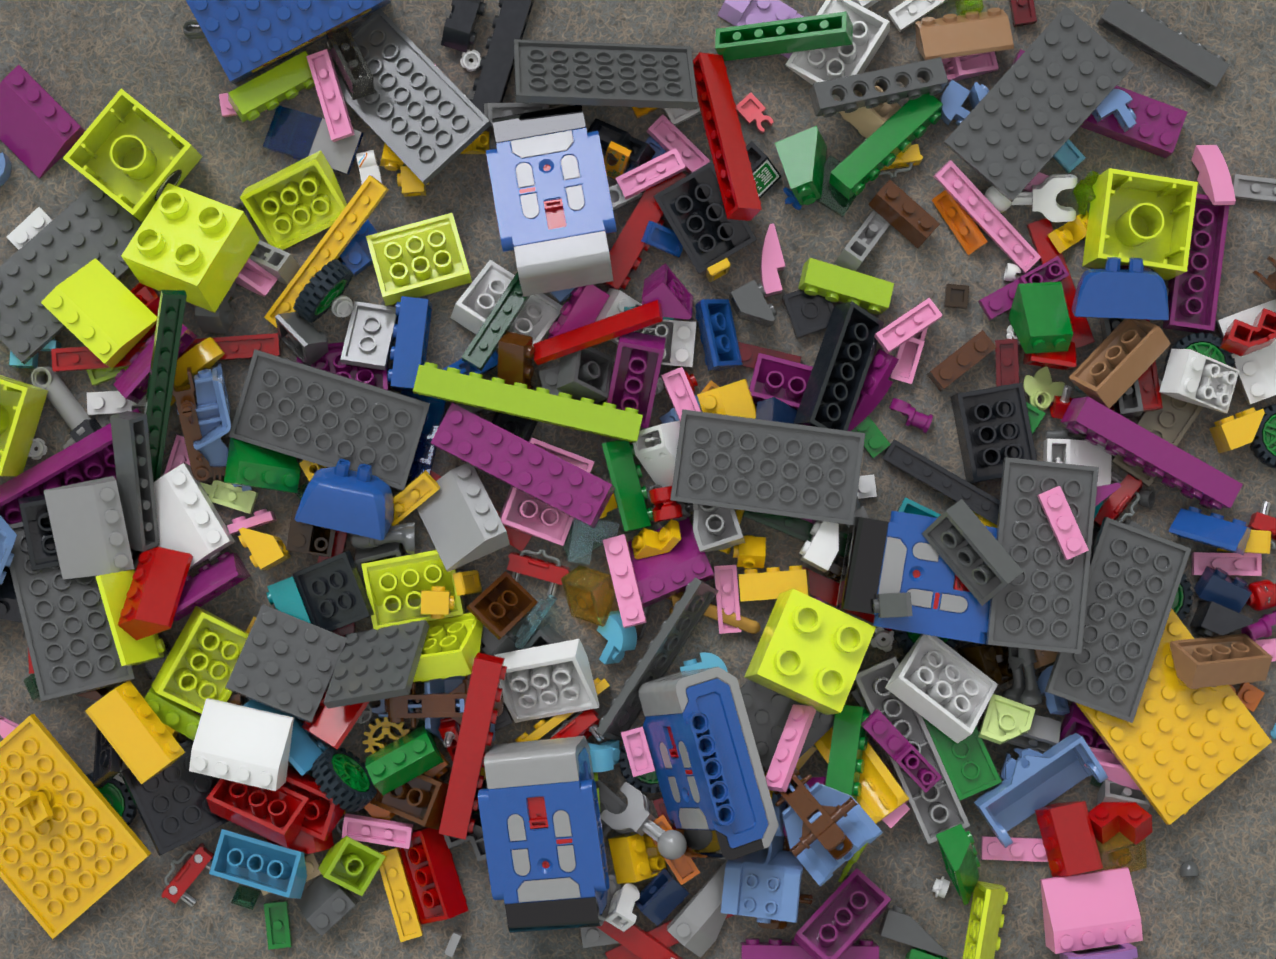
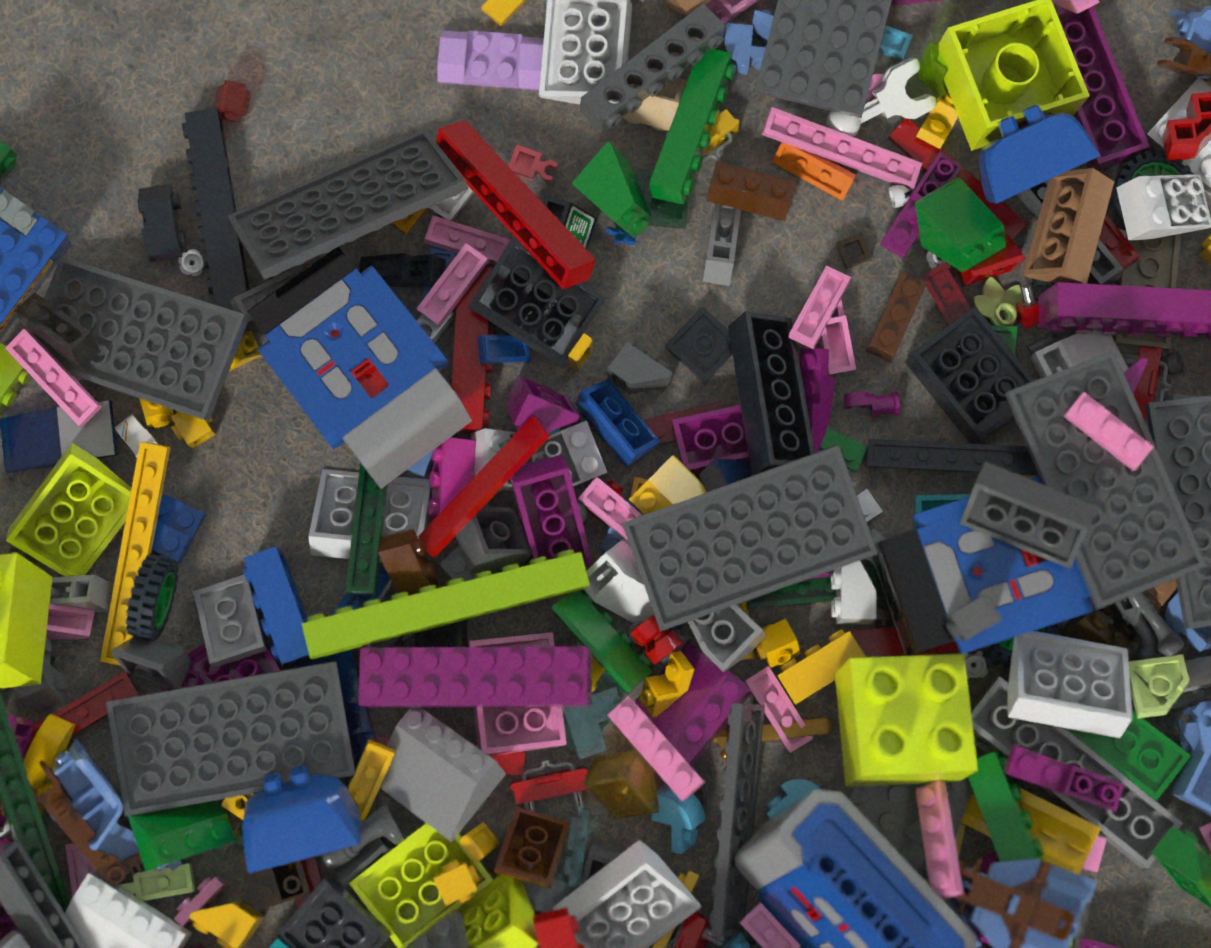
camera: 25 degrees left, 5 degrees down
(342, 306) = (182, 604): white plate -> none
(419, 259) = (242, 507): neon yellow slope -> none
(616, 160) = (407, 288): light orange tile -> none
(771, 263) = (634, 315): bright pink slope -> none
(784, 36) = (522, 65): green brick -> none
(845, 286) = (728, 299): lime brick -> none
(940, 887) = (1184, 909): white plate -> none

